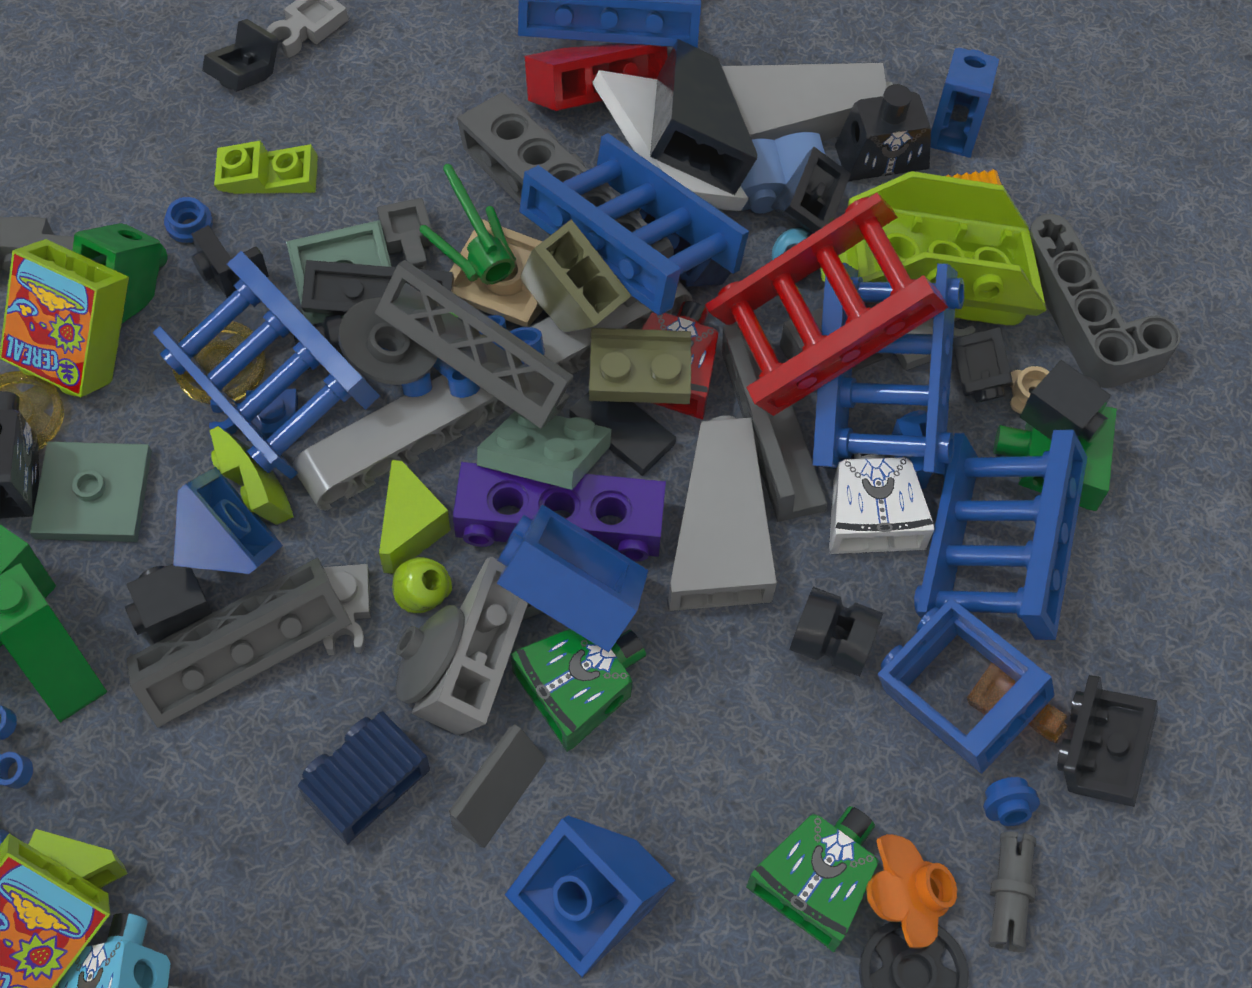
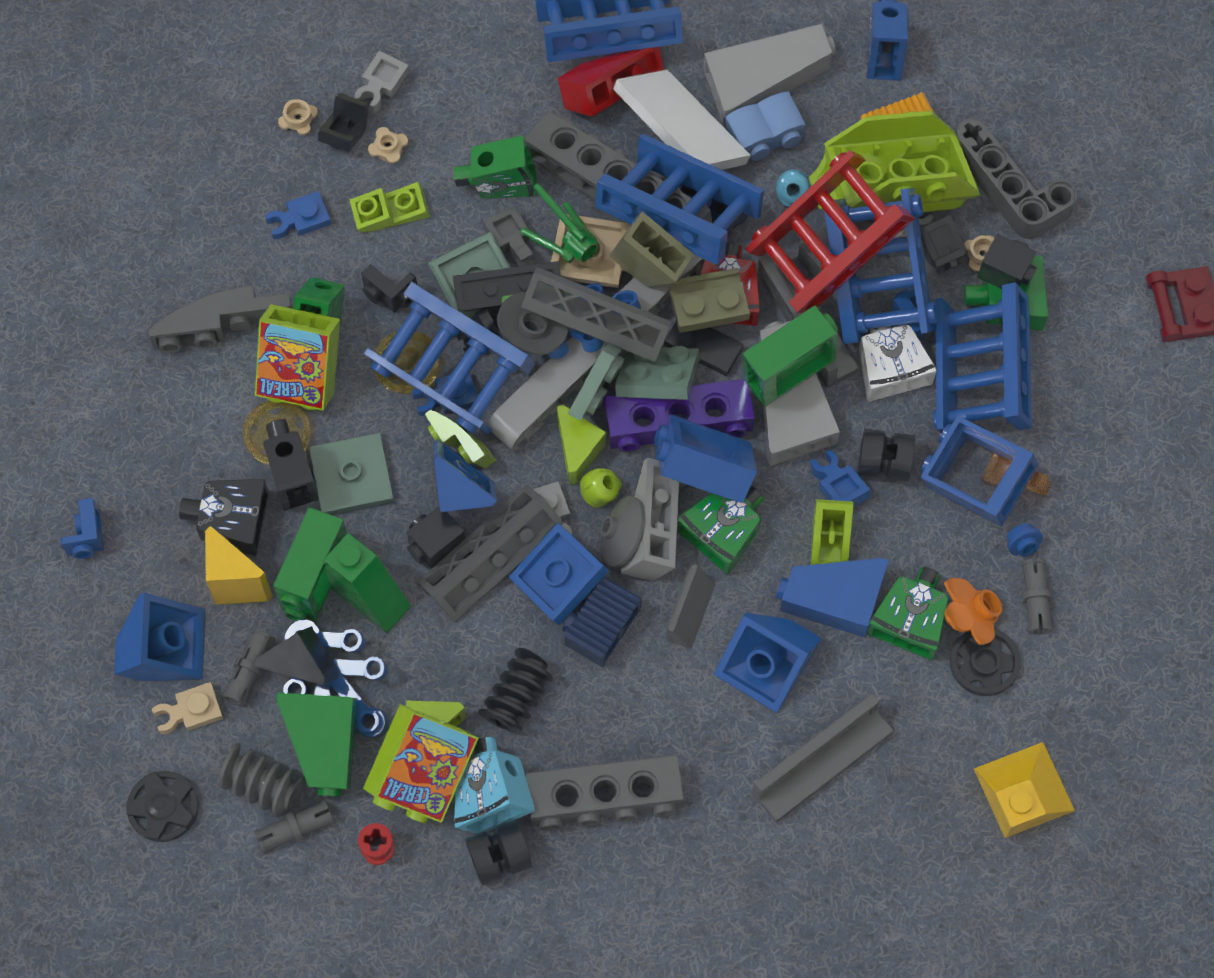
camera: 10 degrees left, 5 degrees up
(153, 156) = (303, 214): none -> blue plate
(184, 209) = (347, 251): blue plate -> none
(185, 31) = (294, 108): none -> tan plate
(205, 854) = (516, 690): none -> black piece
(290, 105) = (388, 154): none -> tan plate
(320, 694) = (558, 574): none -> blue plate
(415, 146) = (499, 169): none -> green torso
(448, 440) = (592, 391): none -> sand green plate
(699, 120) = (699, 102): black slope -> none
(712, 815) = (834, 593): none -> blue slope
(728, 728) = (831, 531): none -> lime slope
(729, 457) = (790, 355): none -> green window
(761, 661) = (839, 483): none -> blue plate
(813, 192) = (796, 142): black slope -> none
(885, 135) = (840, 83): black torso -> none
(1107, 743) = (1079, 488): black bracket -> none

